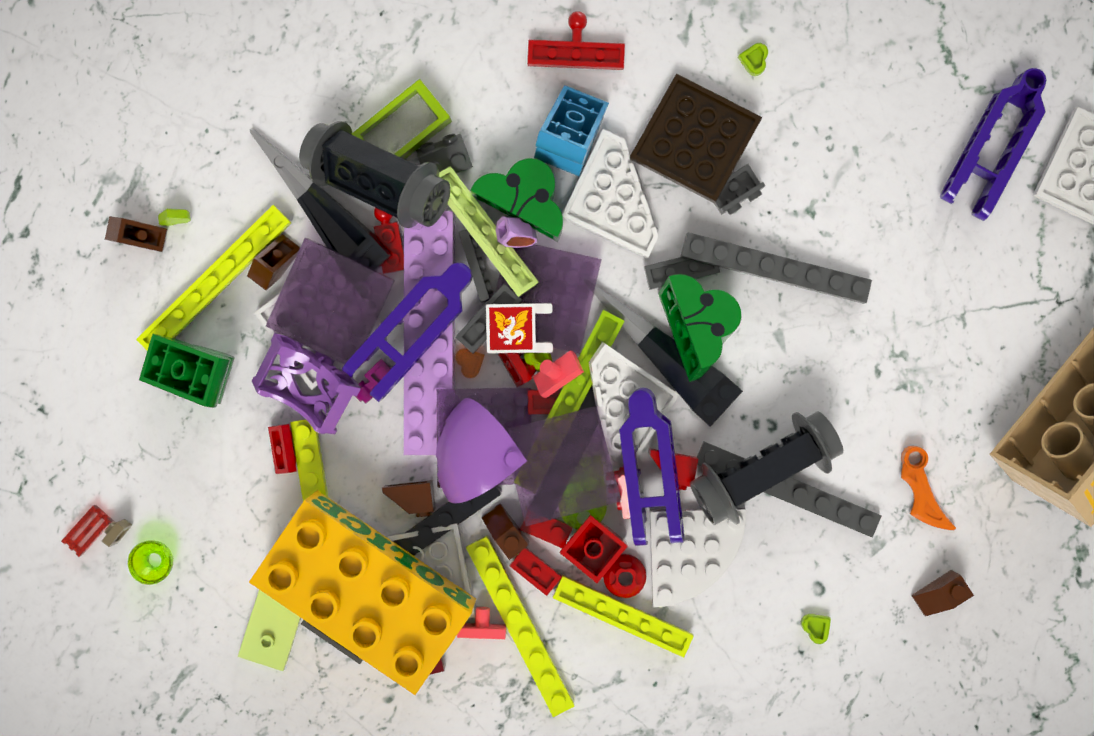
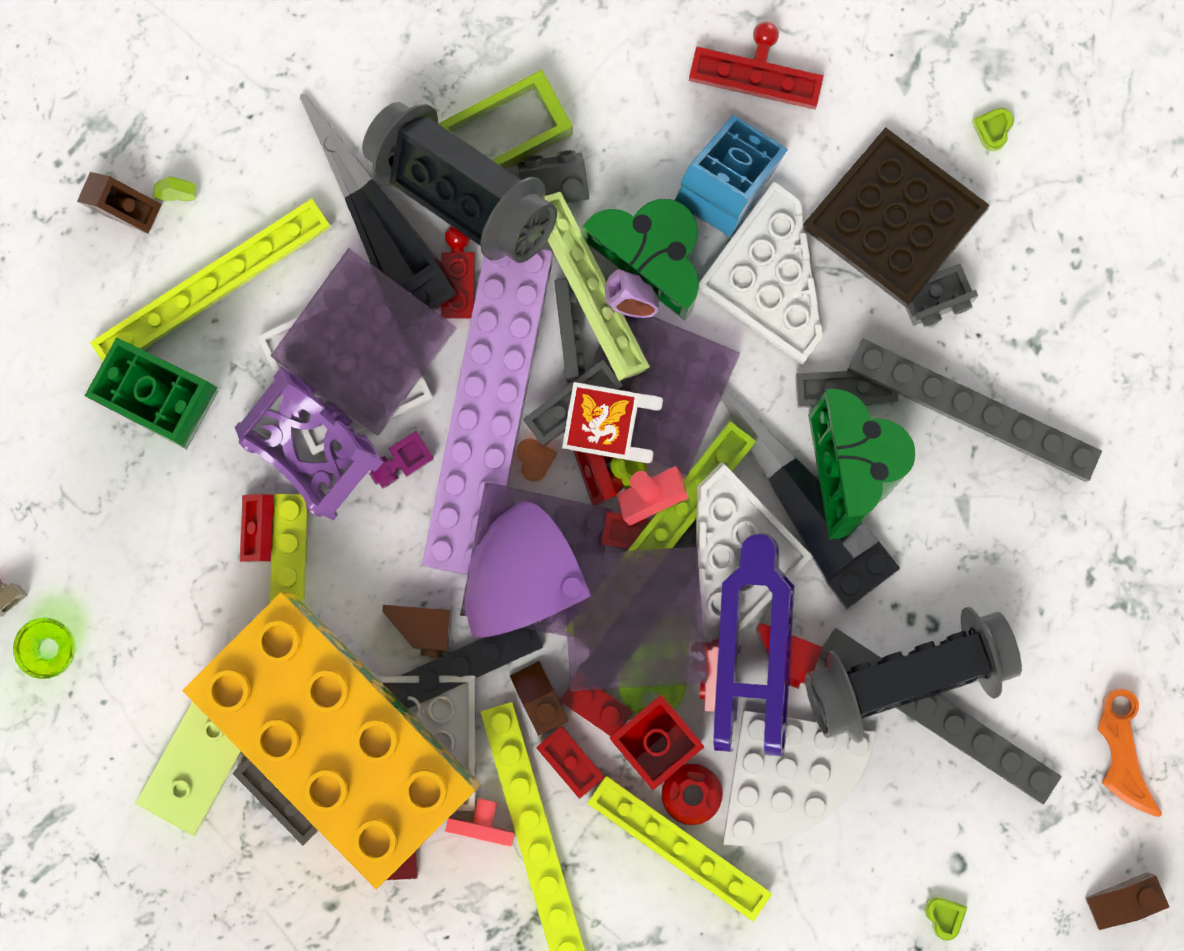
camera: 10 degrees right, 5 degrees down
(273, 262) = (296, 274): reddish brown slope -> none
(451, 285) = (533, 345): dark purple piece -> none

